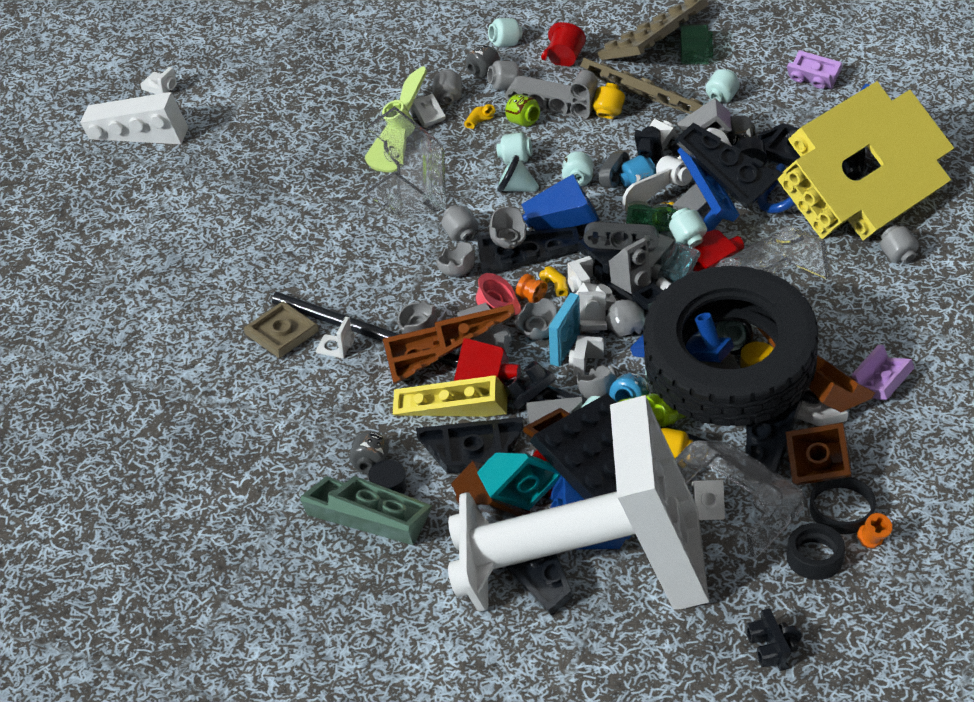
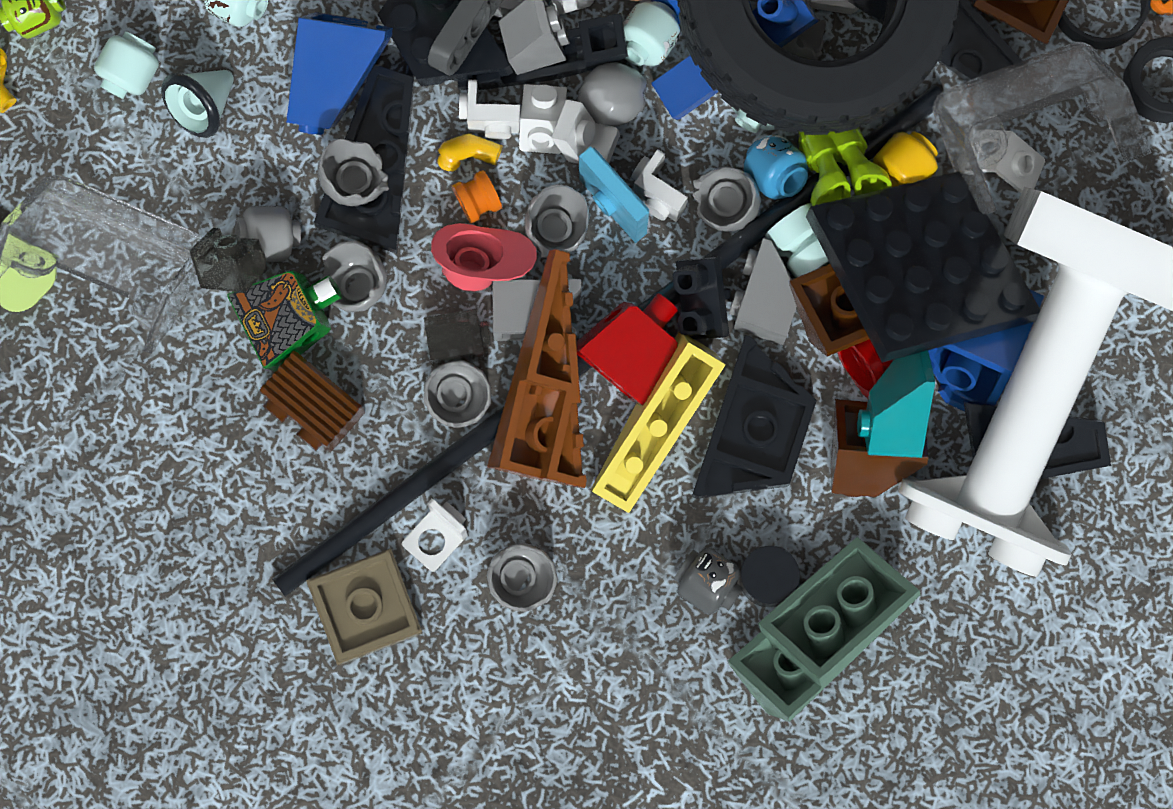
camera: 70 degrees left, 35 degrees up
(329, 378) = (511, 569): none -> light grey hair
(379, 270) = (311, 402): none -> reddish brown brick
(417, 242) = (284, 315): none -> torso
(432, 206) = (227, 262): none -> clear smoke brick
(446, 303) = (456, 337): none -> clear smoke brick

